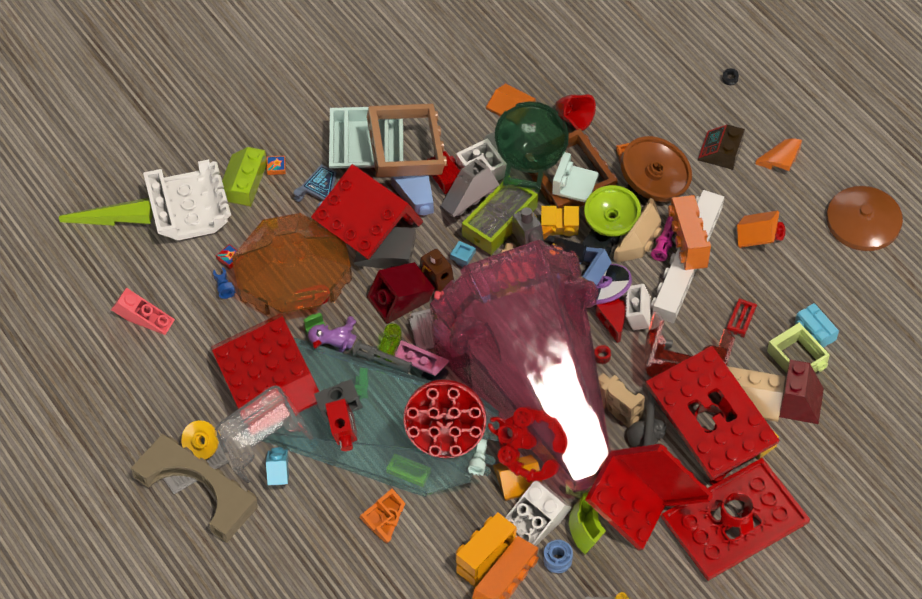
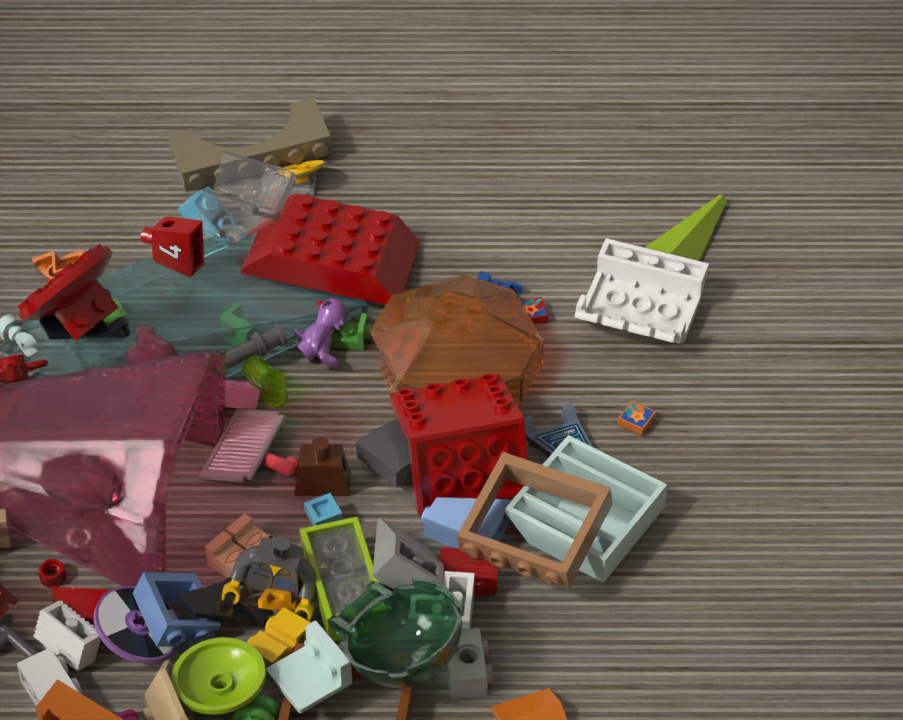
camera: 125 degrees right, 10 degrees down
(141, 312) = (518, 201): coral slope -> none
(244, 175) = (639, 373): lime slope -> none
(340, 391) = (217, 267): dark grey brick -> none
(399, 291) = (327, 414): dark red slope -> none

